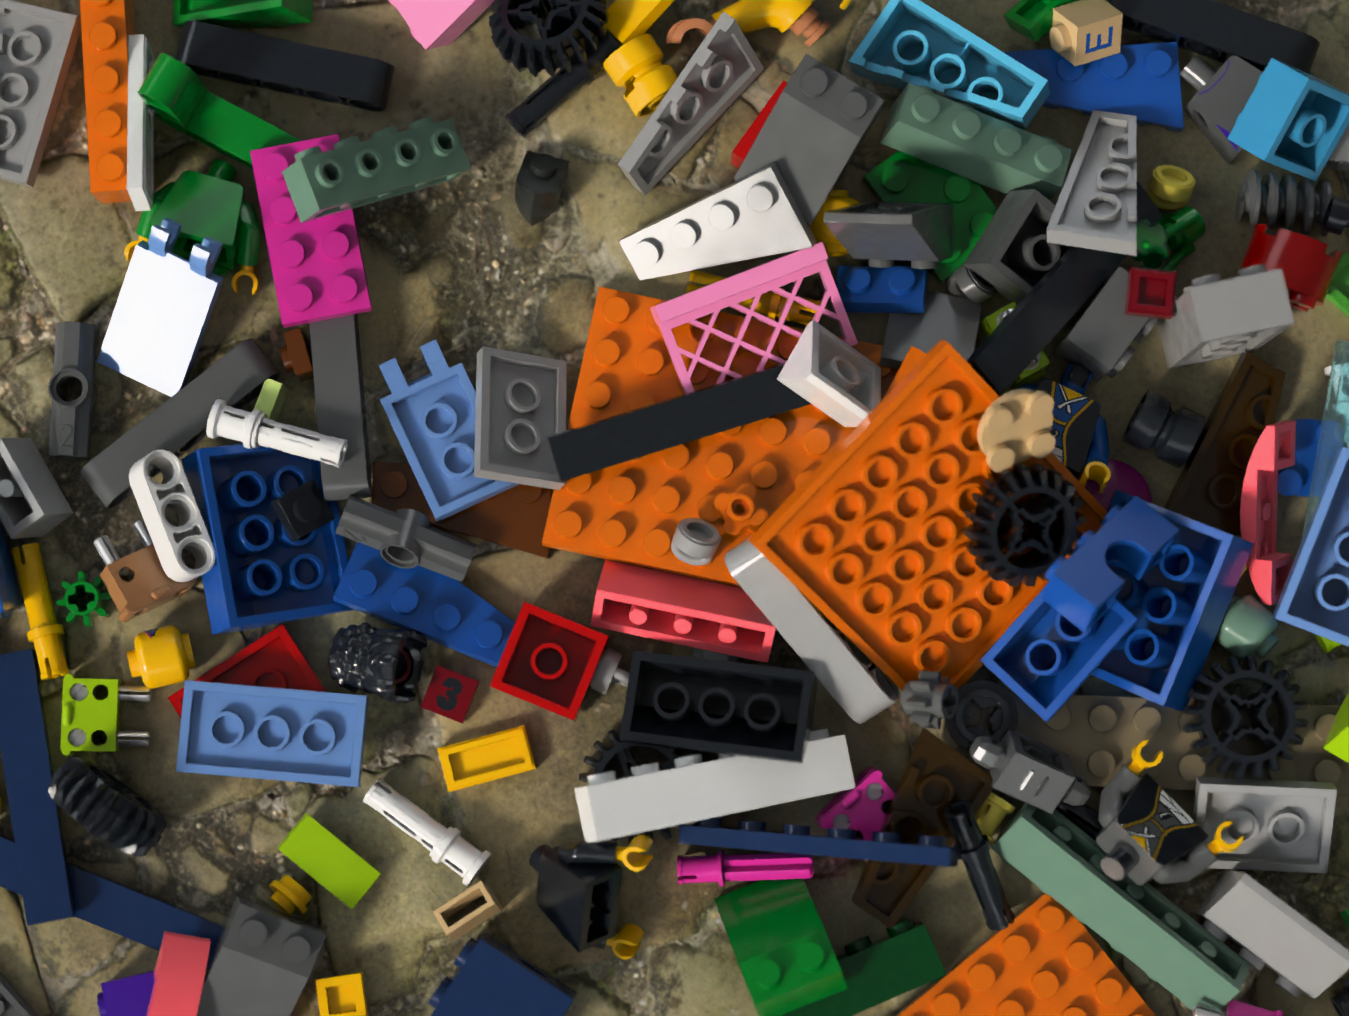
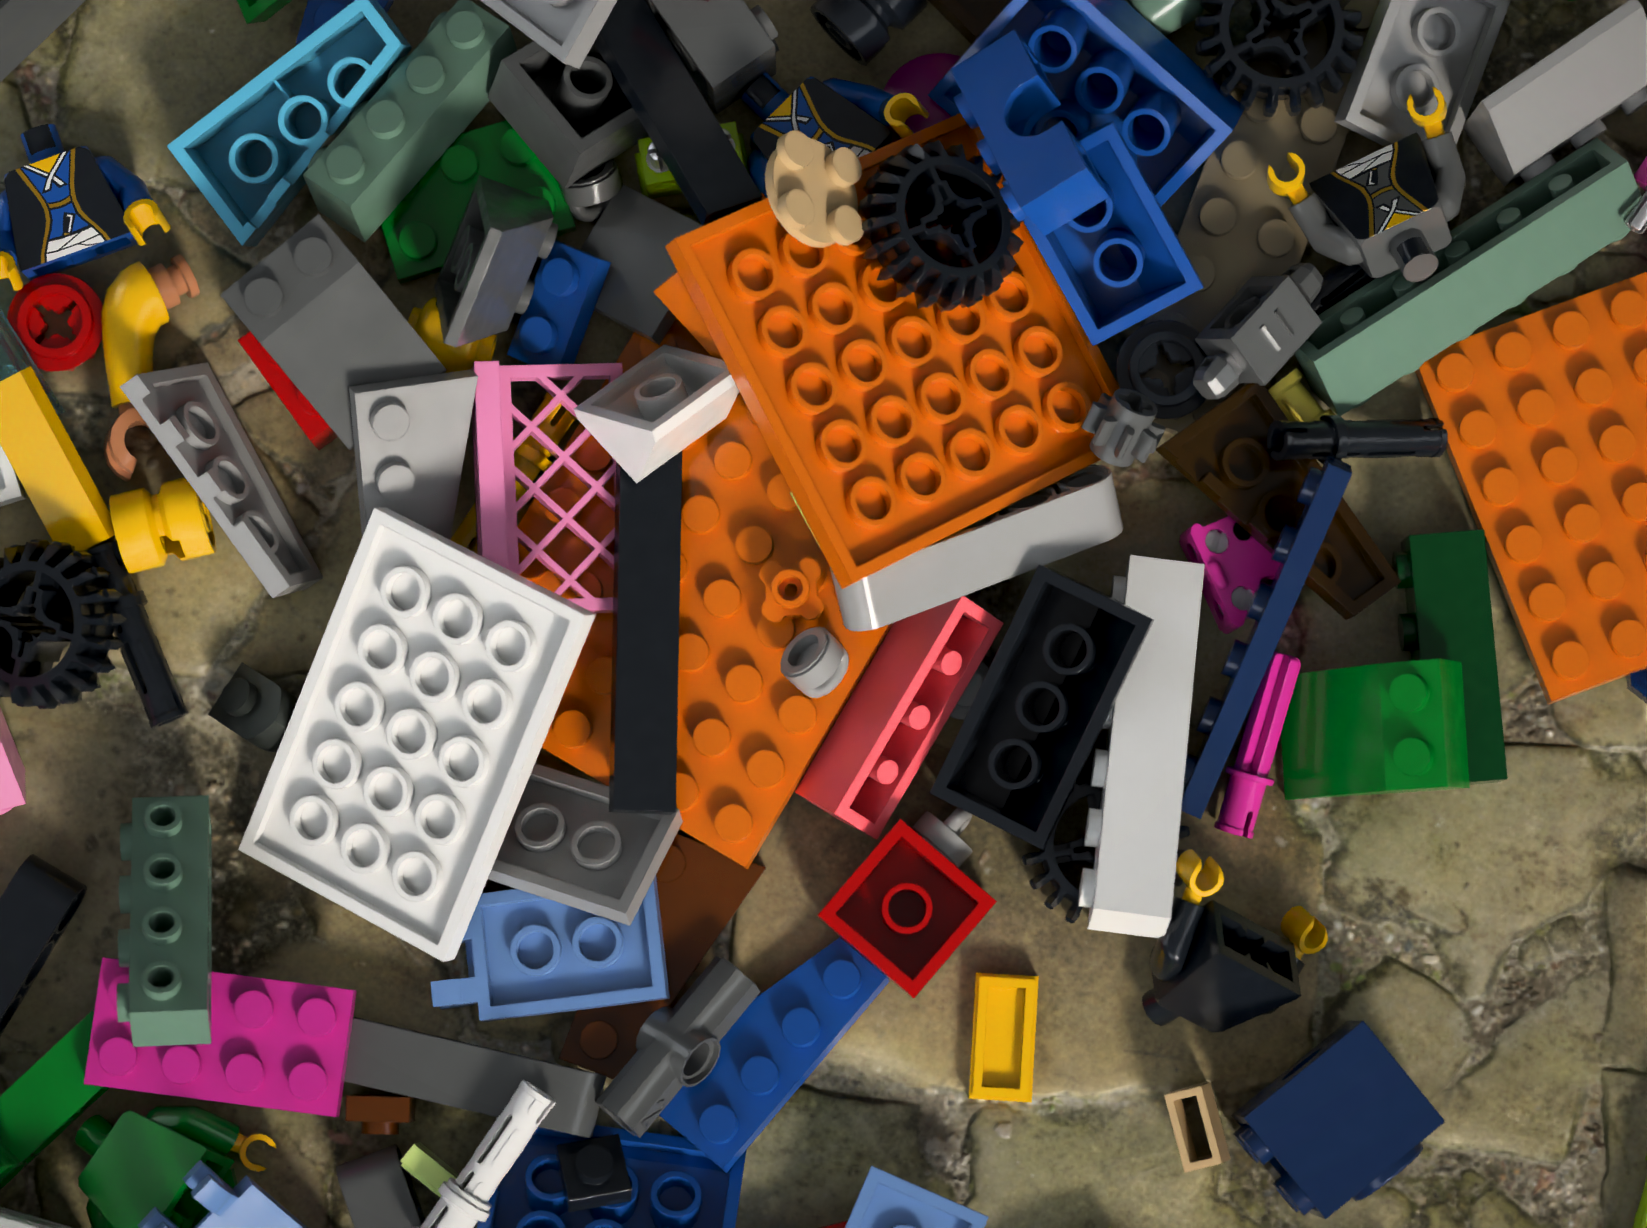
camera: 70 degrees left, 0 degrees up
(378, 661) = (828, 1138): black hair -> none
(443, 843) = (1097, 1131): white pin -> none
(450, 694) = (902, 1058): dark red tile -> none
(557, 289) = (416, 732): none -> white plate

